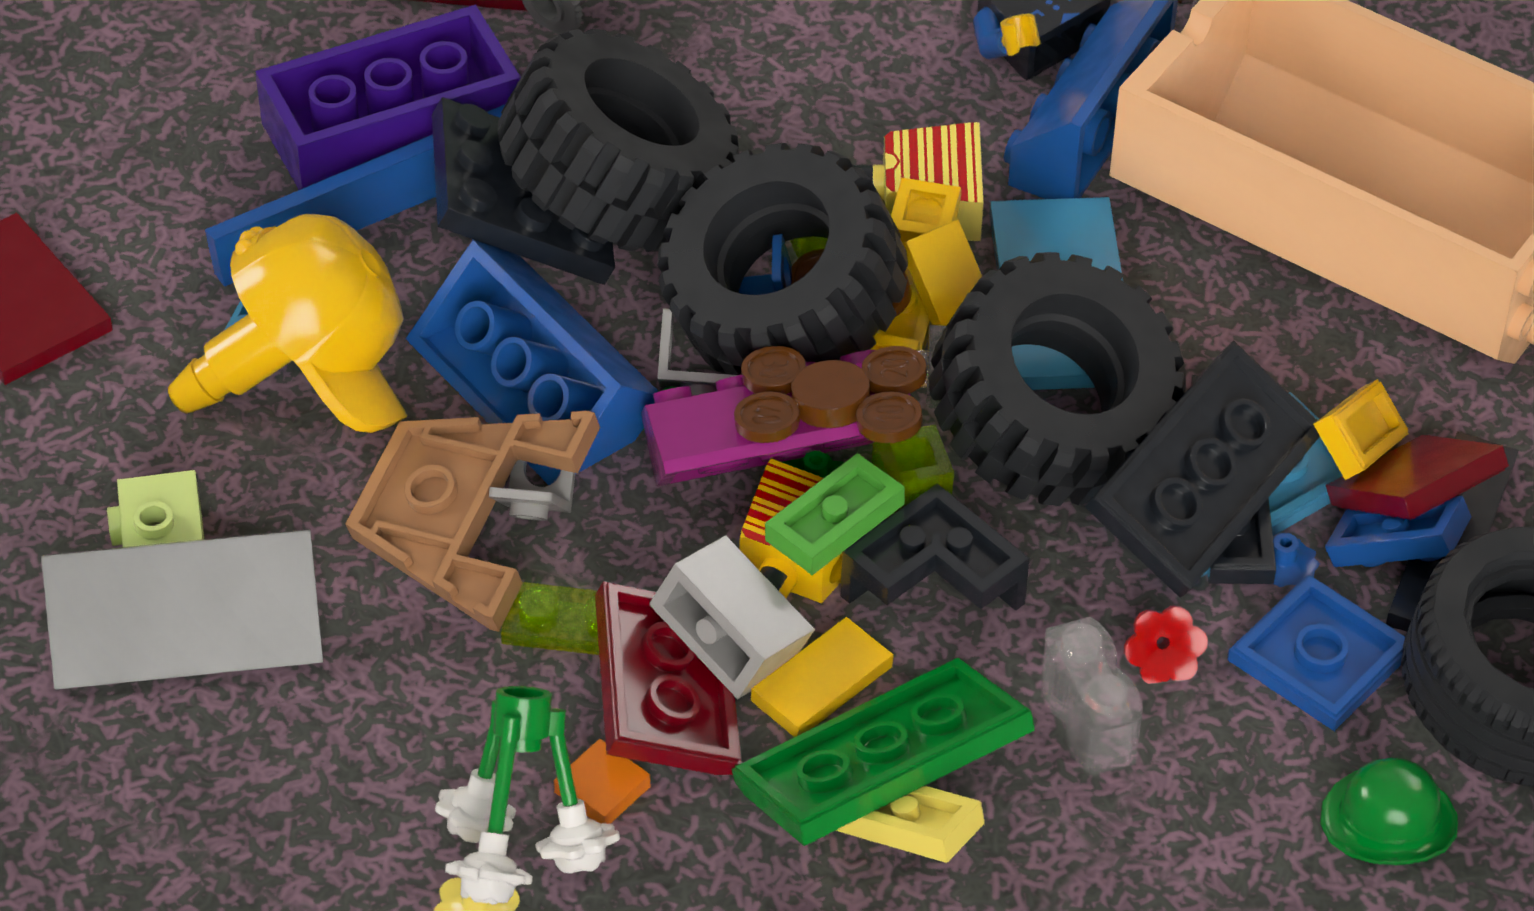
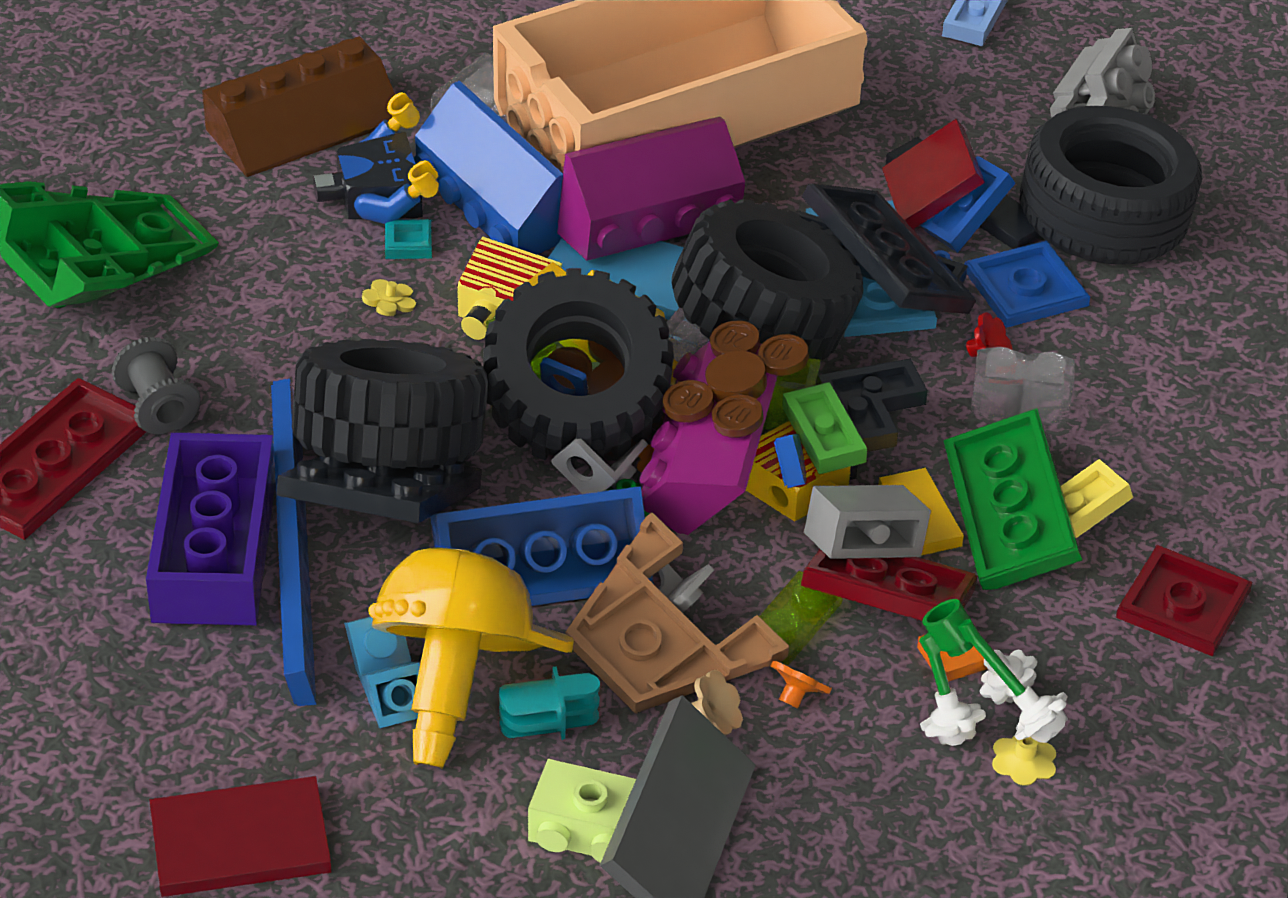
camera: 65 degrees left, 5 degrees down
(298, 452) = (549, 705): none -> teal arm
(389, 609) = (718, 701): none -> tan plant
(463, 651) = (797, 684): none -> orange plant
(760, 500) = (791, 460): none -> blue tile
(867, 104) = (389, 297): none -> light yellow plant
(972, 82) = (408, 239): none -> teal tile
(1162, 224) = (646, 187): none -> magenta slope
(1361, 429) = (875, 180): yellow tile -> none
(1389, 814) = (1171, 305): green hat -> none

